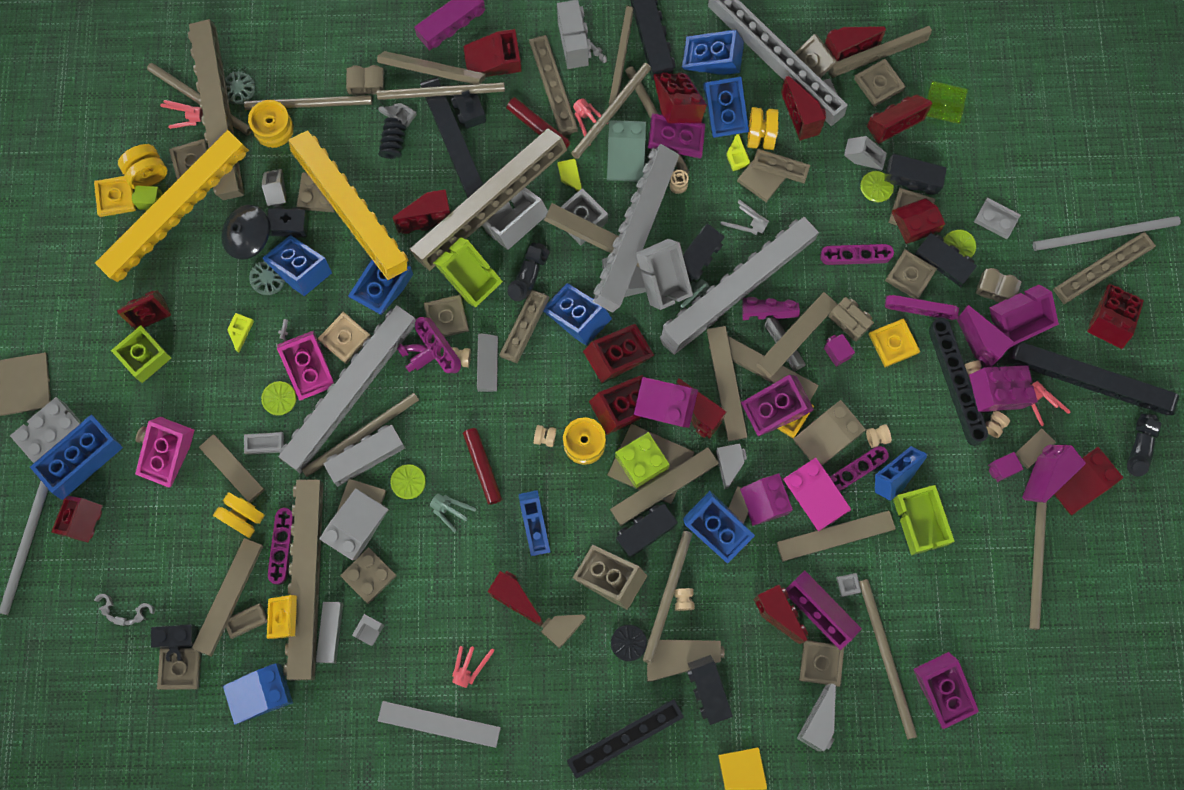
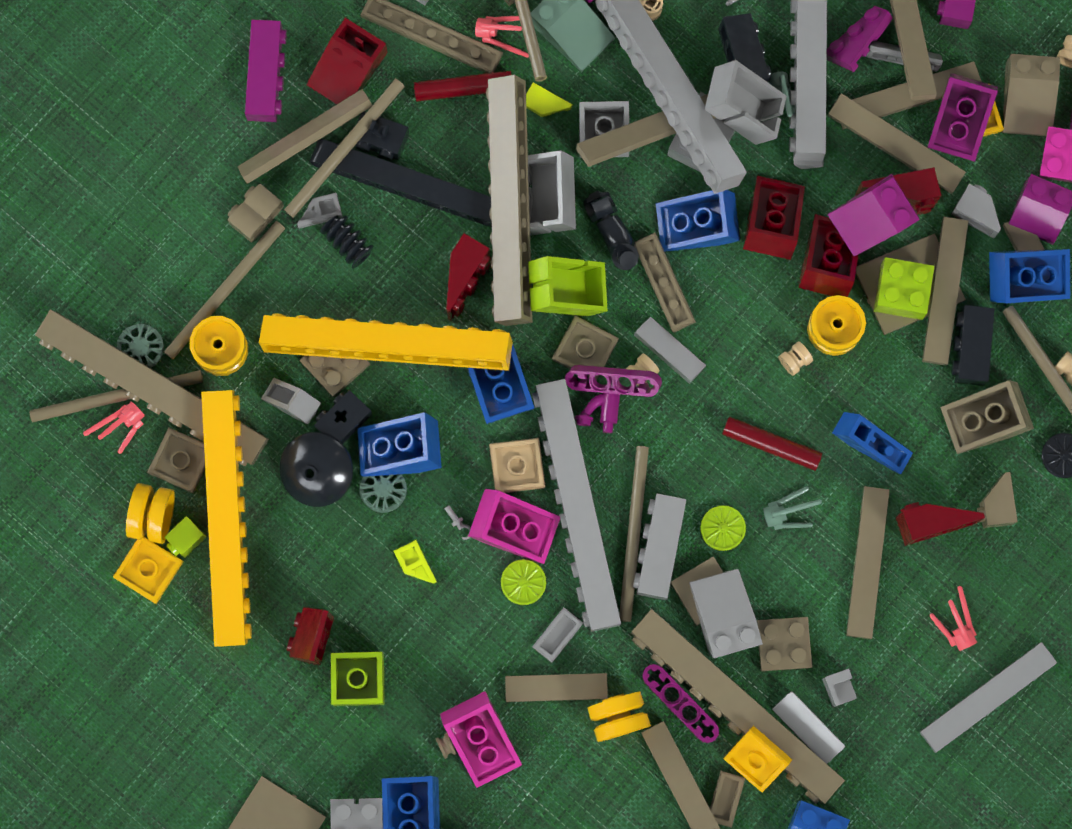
camera: 50 degrees left, 5 degrees up
(459, 582) = (867, 562): none -> dark tan tile

